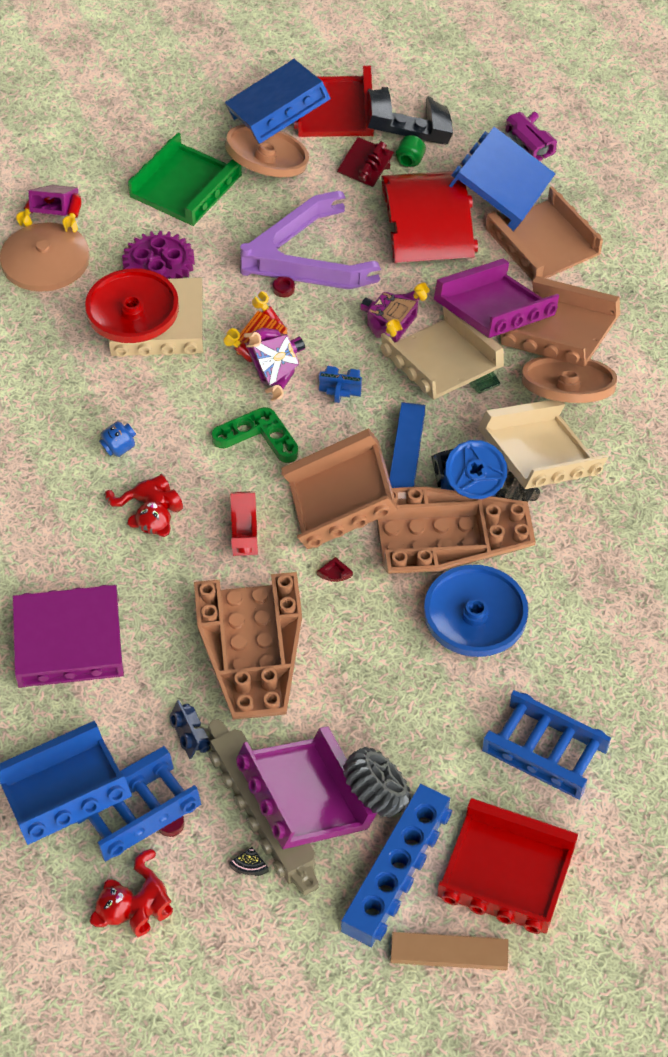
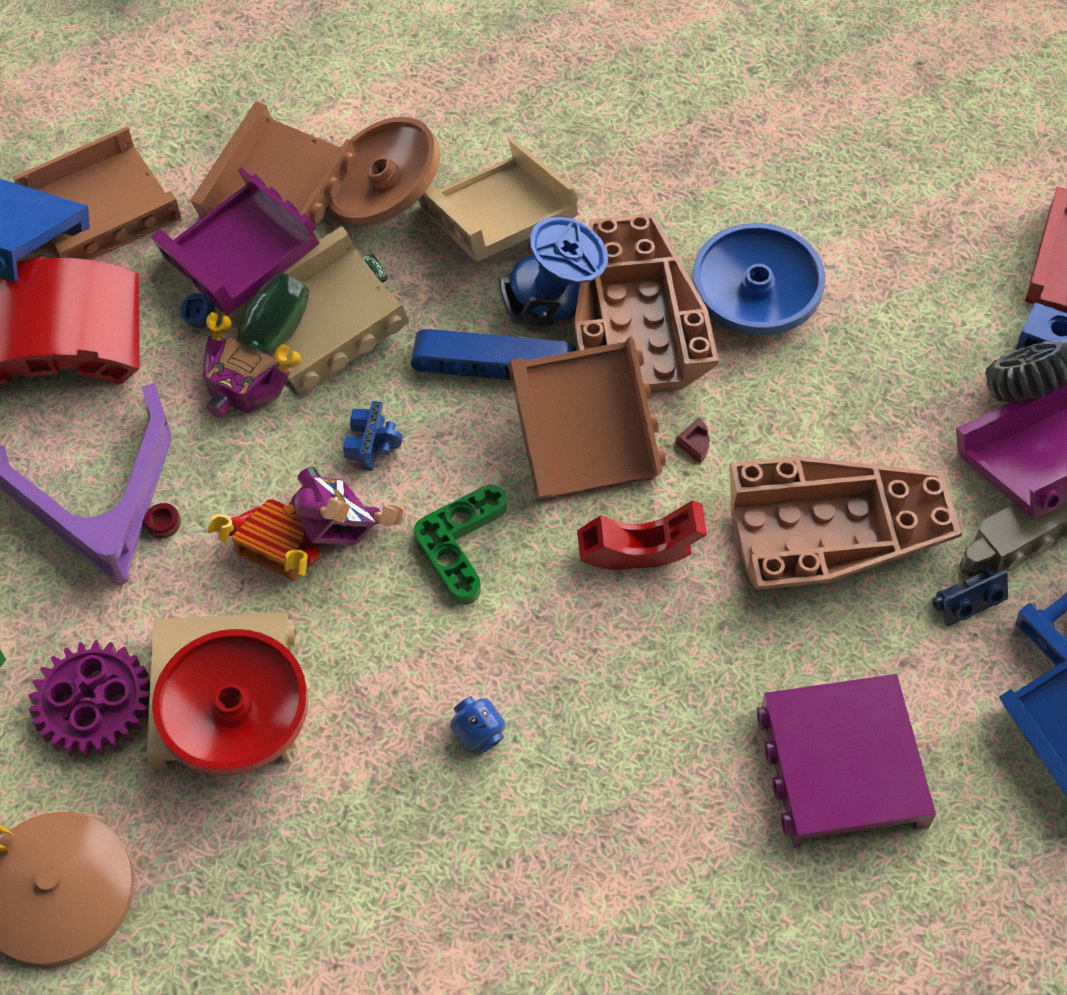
camera: 90 degrees left, 5 degrees up
(153, 514) = (622, 665): red animal -> none
(433, 322) = (273, 313): none -> clear green piece
(543, 768) = (952, 241): blue fence -> none

